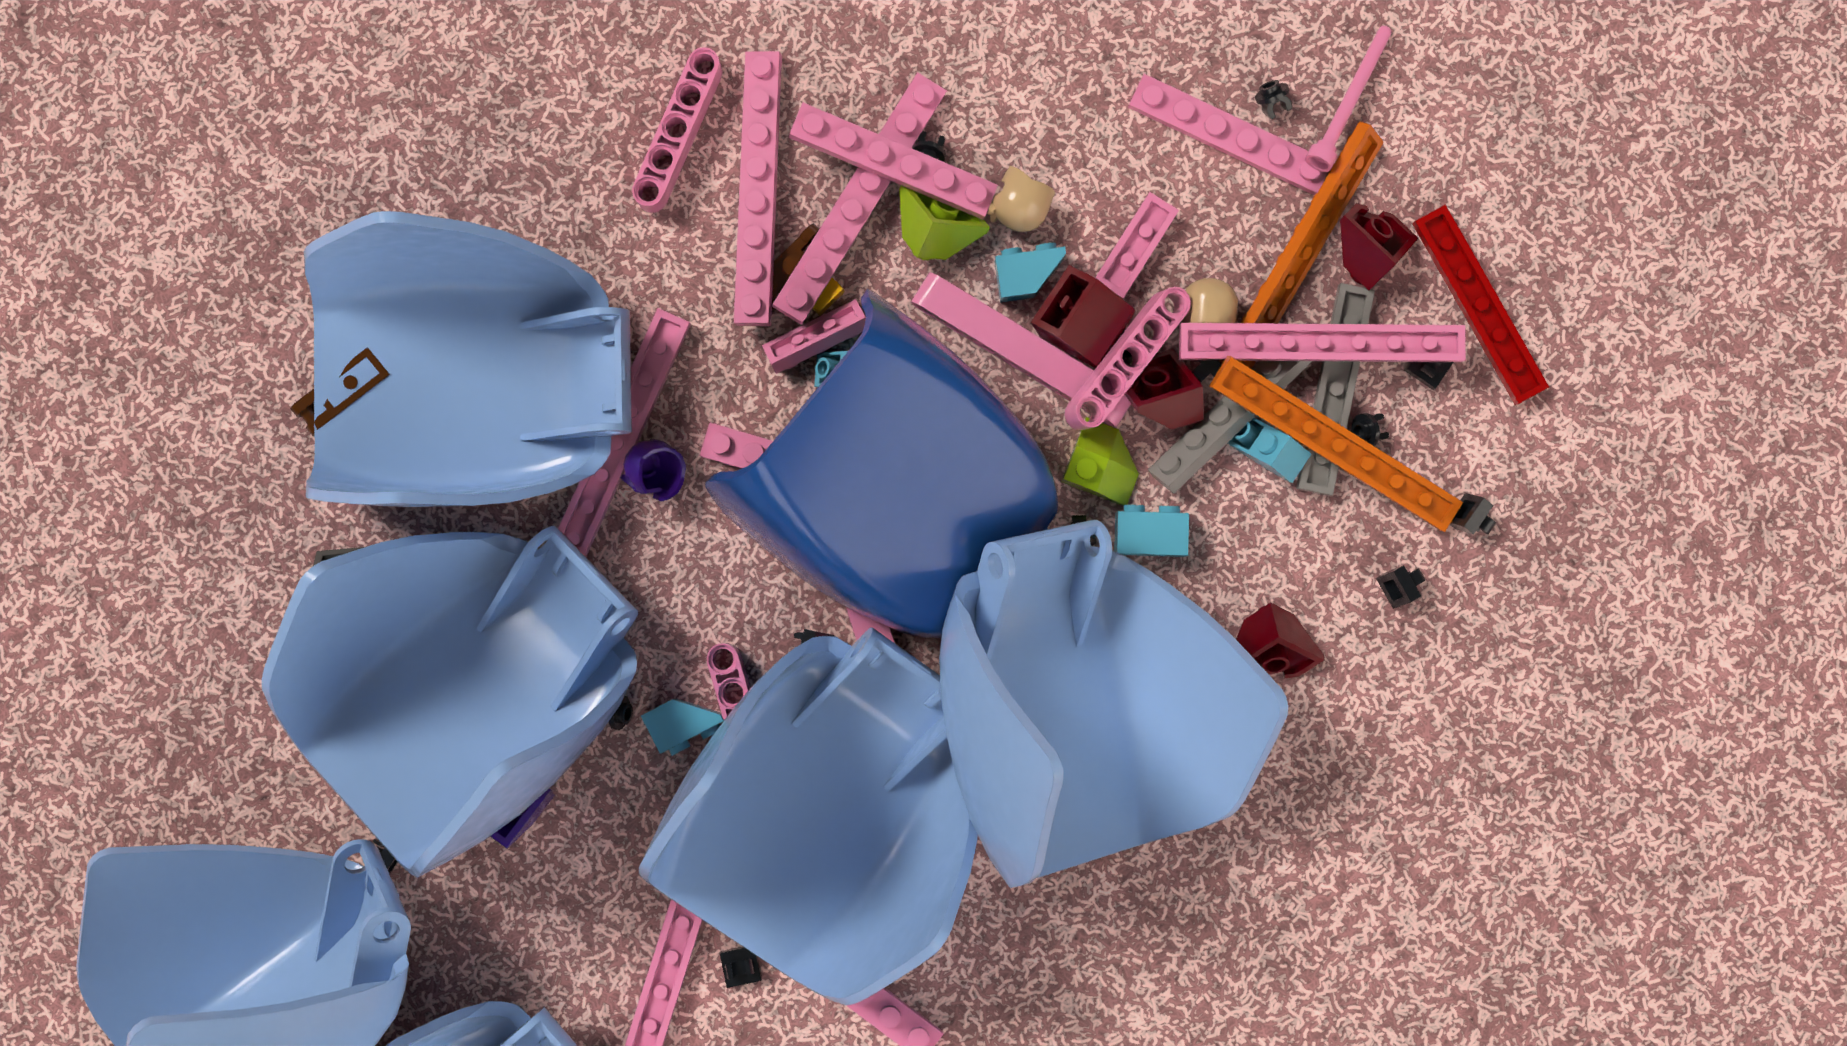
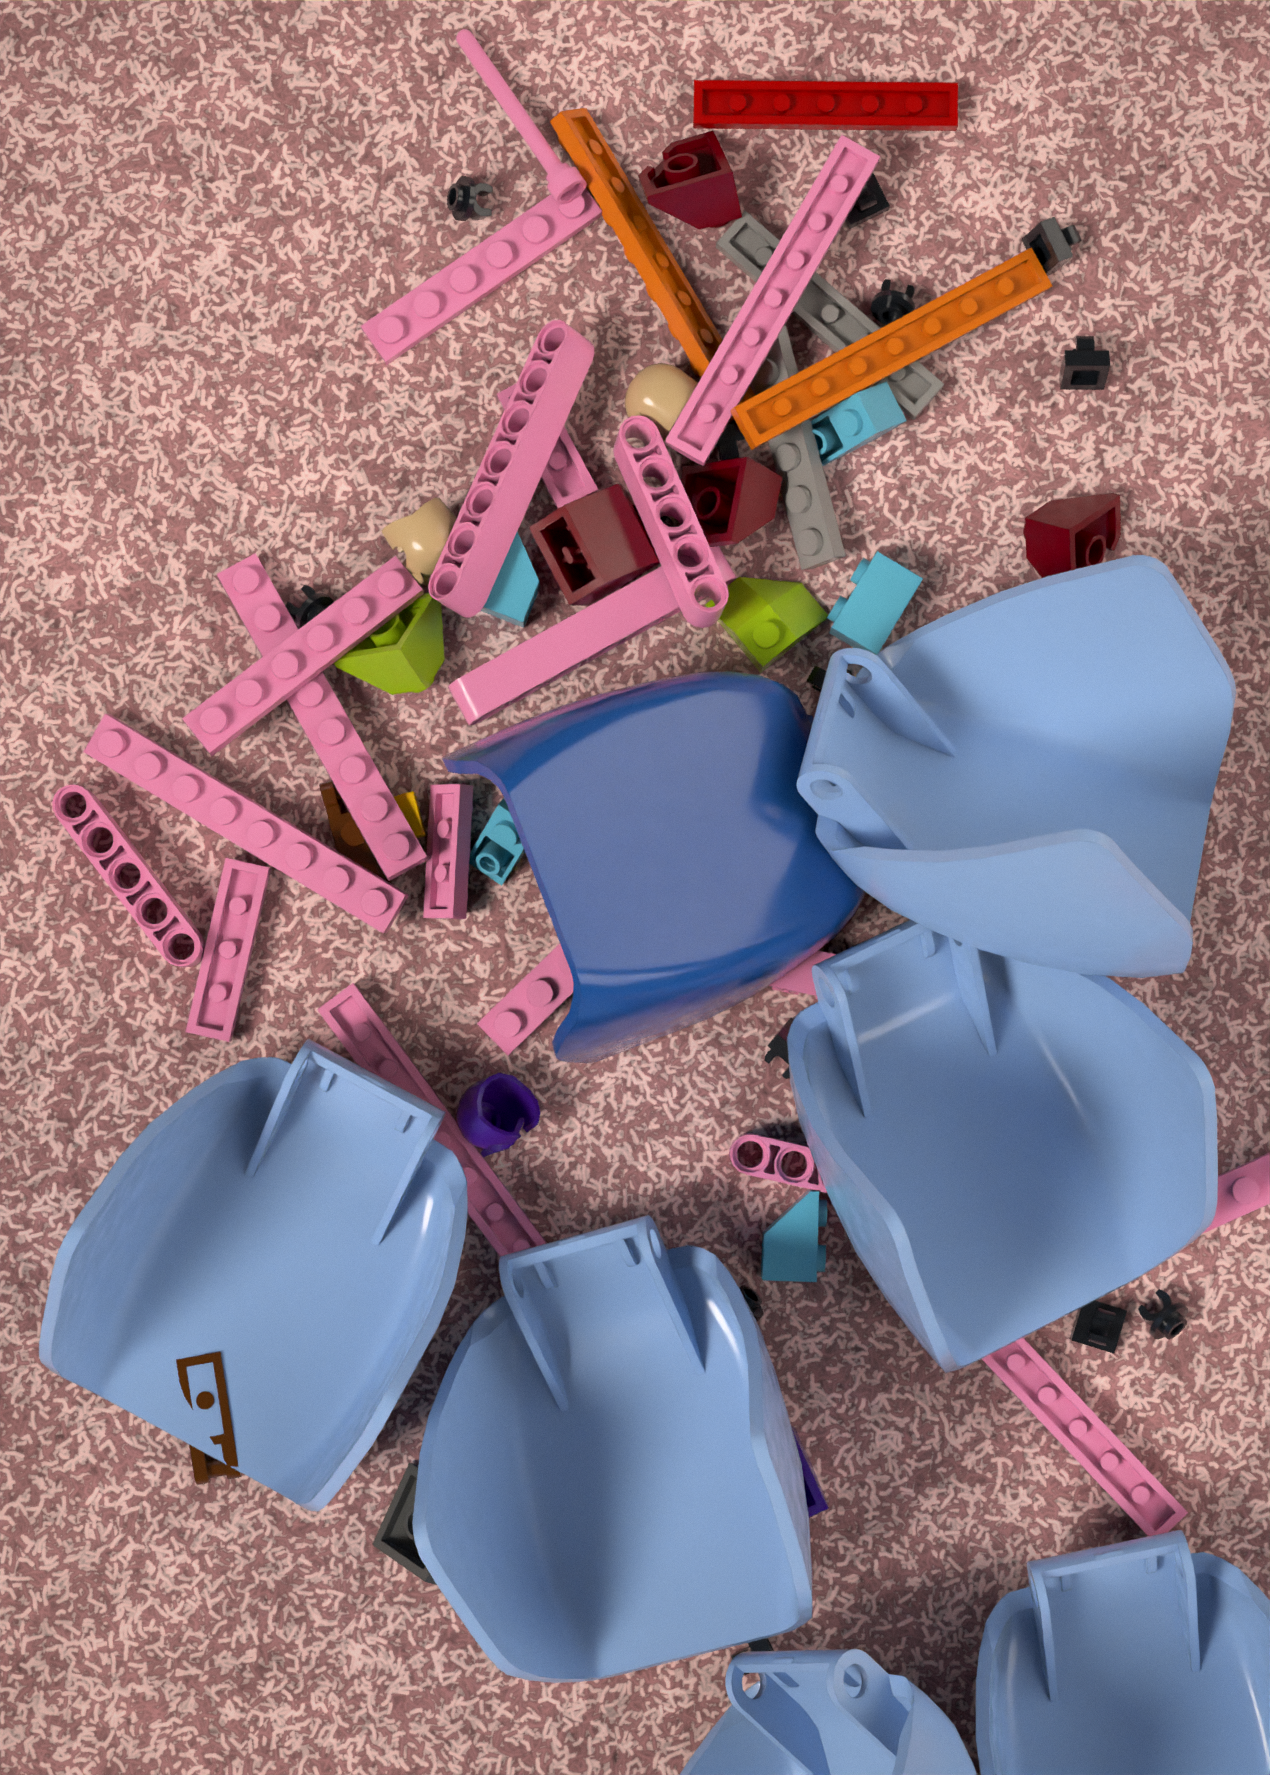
camera: 60 degrees left, 0 degrees up
(665, 225) = (228, 950): none -> bright pink plate
(769, 1013) = (1168, 1321): none -> black plate
(1102, 229) = (511, 469): none -> bright pink beam

